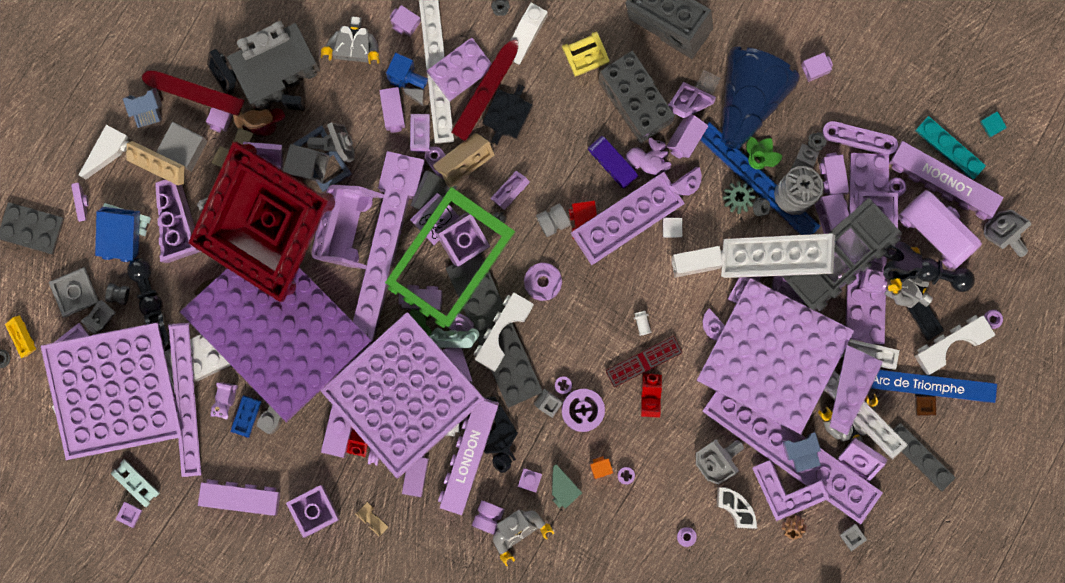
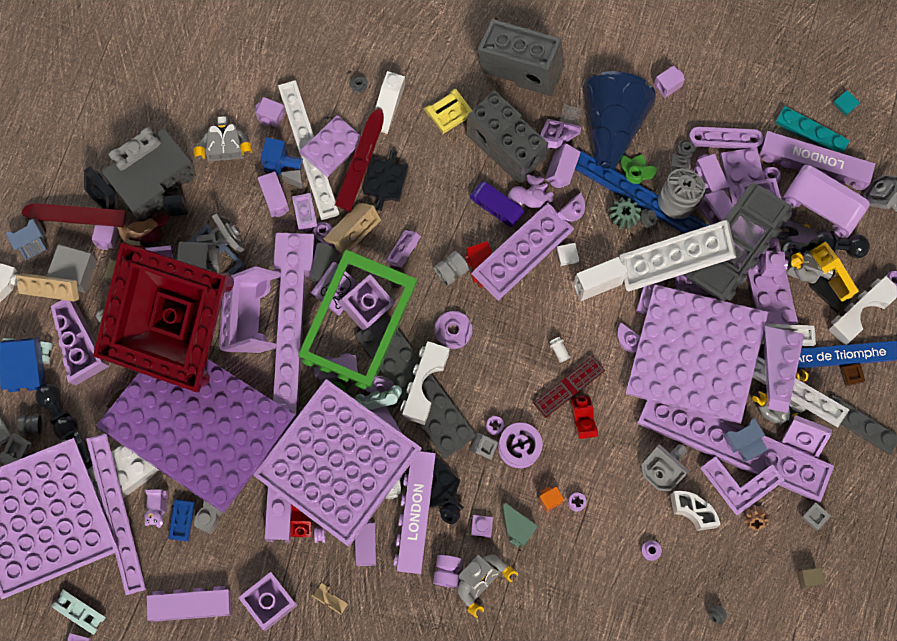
camera: 15 degrees left, 10 degrees down
(926, 293) = (828, 260): none -> yellow panel

